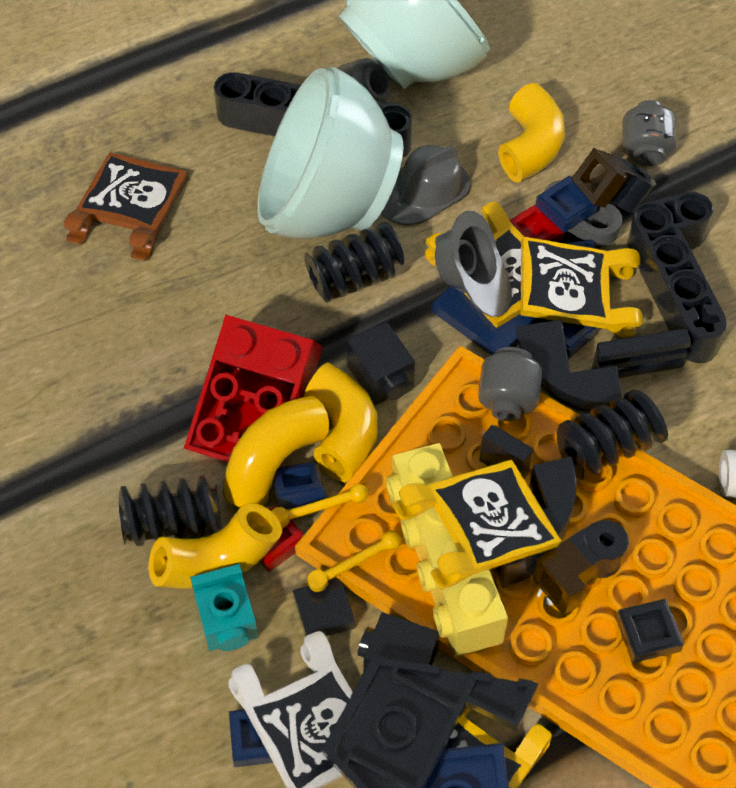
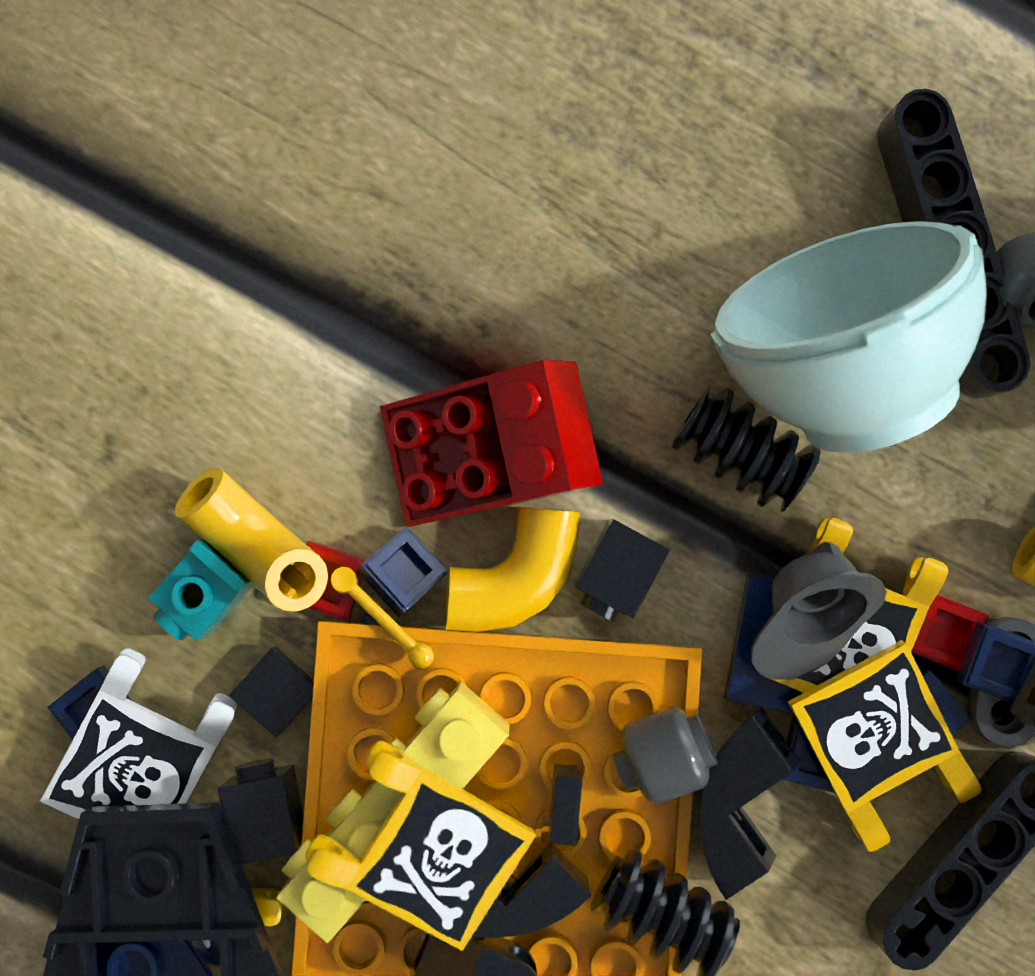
camera: 60 degrees right, 30 degrees up
(129, 196) = (687, 98): flag -> none
(169, 511) = (274, 455): black piece -> none
(267, 444) = (417, 523): yellow cylinder -> none
(319, 579) = (291, 674): yellow hinge -> none
(426, 185) = (943, 467): dark grey piece -> none
(644, 353) = (826, 872): black tile -> none

